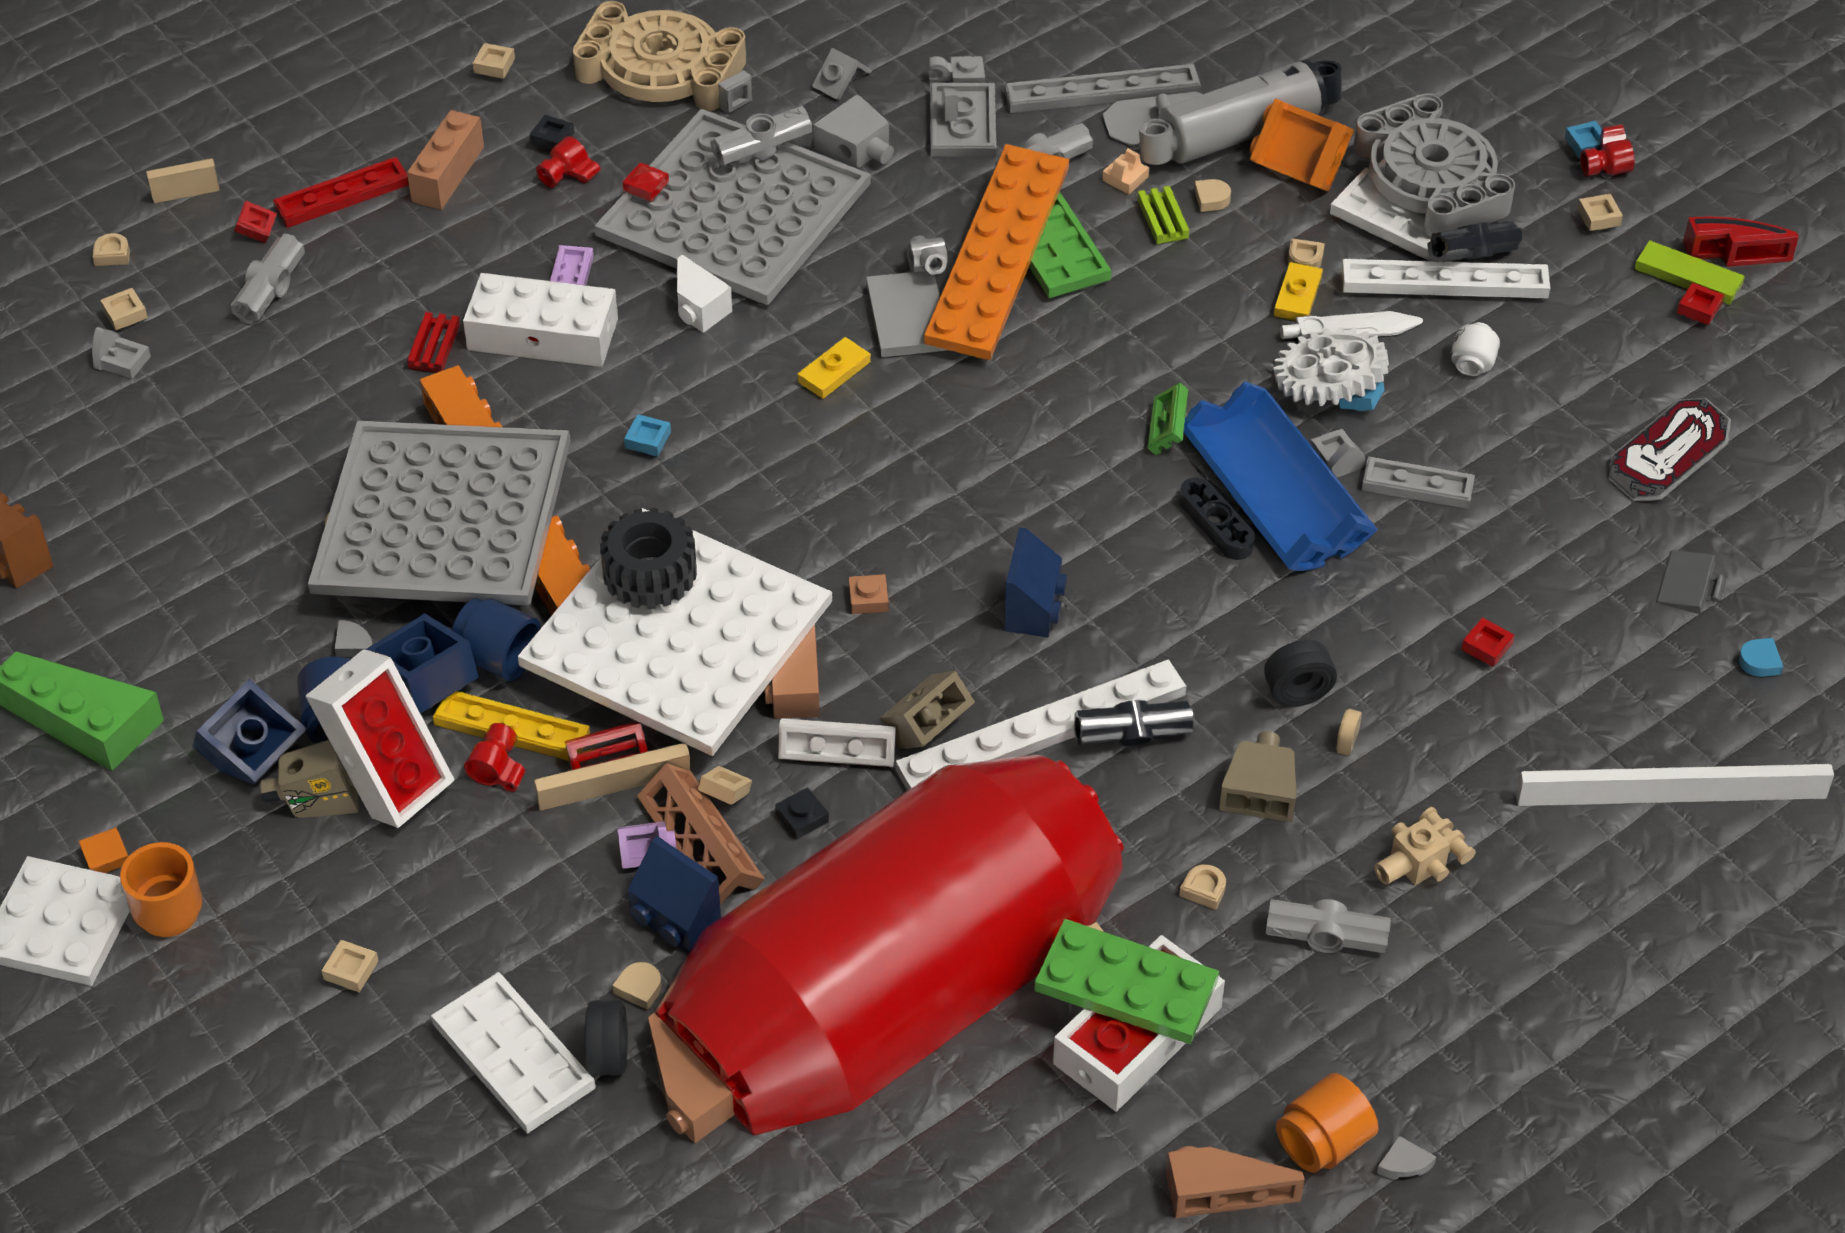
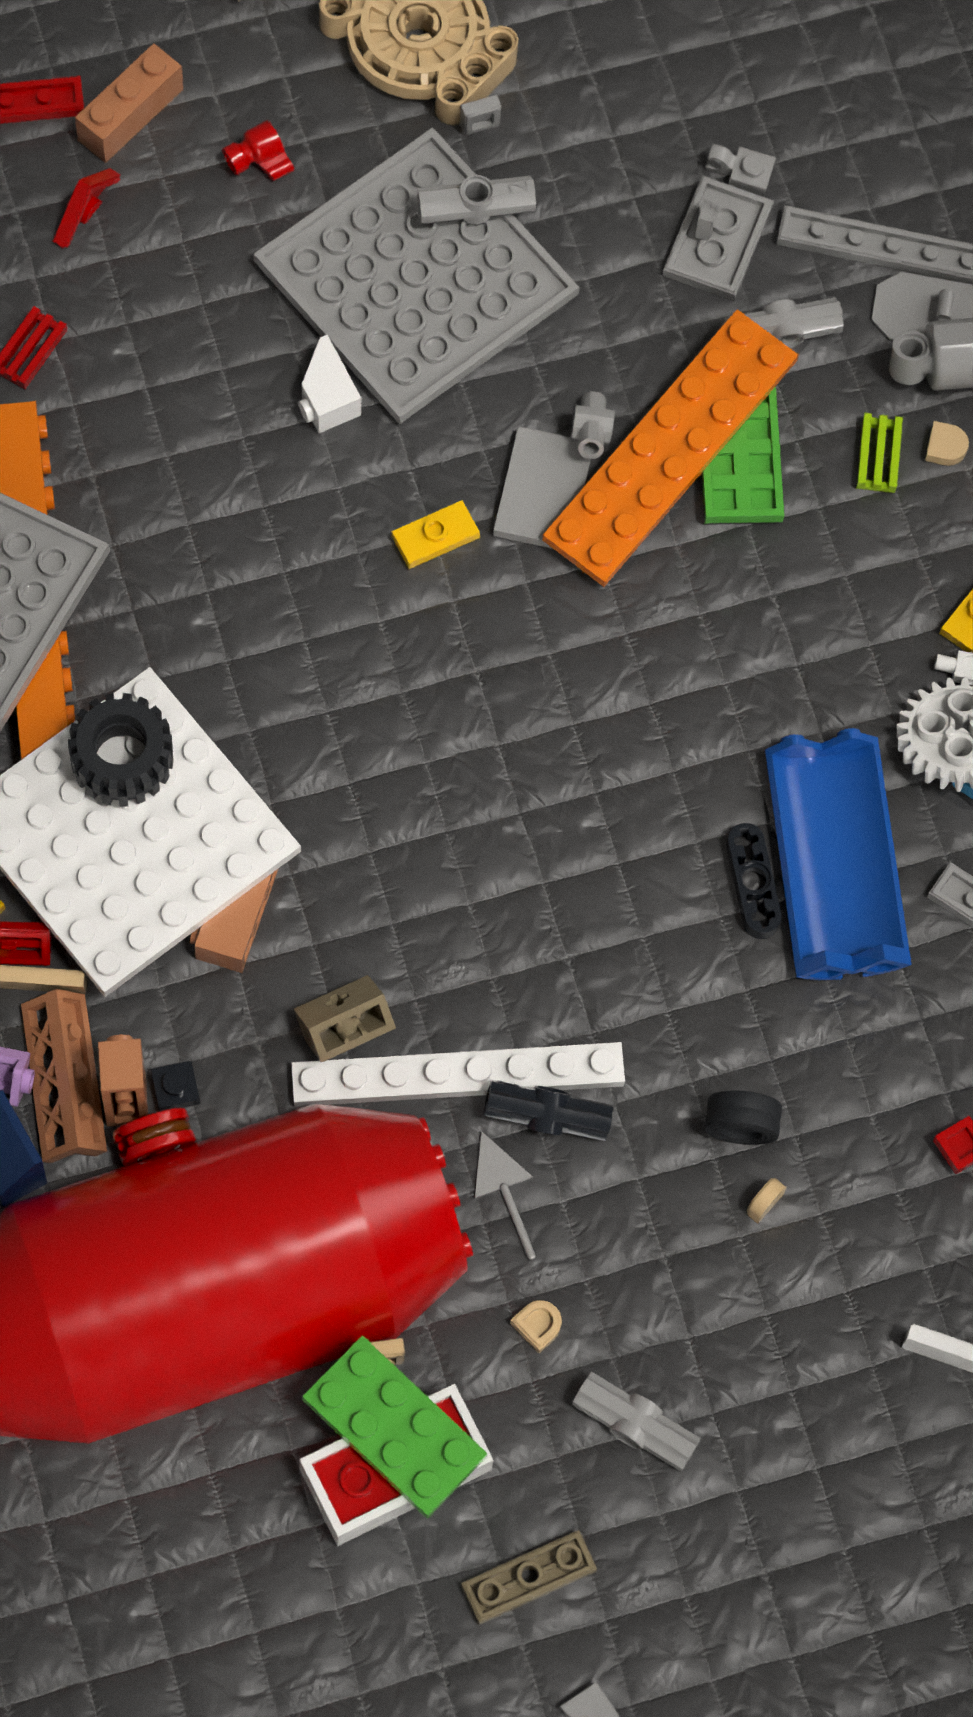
camera: 15 degrees right, 20 degrees up
(436, 236) = (84, 204): none -> red tile
(541, 319) = (148, 363): white brick -> none
(550, 132) = (258, 102): black plate -> none
(572, 265) = (205, 308): lavender plate -> none
(645, 181) = (329, 215): red tile -> none
(647, 435) = (203, 556): dark azure plate -> none
(725, 785) = (107, 1022): tan tile -> none
(761, 804) = (122, 1079): none -> nougat brick
(801, 839) = (153, 1135): none -> red head
(837, 73) = (606, 125): light grey bracket -> none
(837, 742) = (240, 1020): white tile -> none
(853, 134) = (586, 222): light grey torso -> none
(868, 594) = (351, 842): nougat plate -> none
(1033, 587) = (517, 906): dark blue slope -> none
(1115, 788) = (498, 1172): none -> light grey piece
(1126, 172) = (864, 380): light nougat tile -> none
(1168, 418) = (757, 736): bright green tile -> none
(1222, 1181) = (395, 1663): nougat slope -> none
(1261, 780) = (648, 1224): dark tan torso -> none
(1301, 1070) = (505, 1589): none -> dark tan tile
(1326, 1124) = (525, 1649): orange piece -> none
(1339, 452) = (920, 844): light grey tile -> none
(1423, 850) = (770, 1372): tan piece -> none

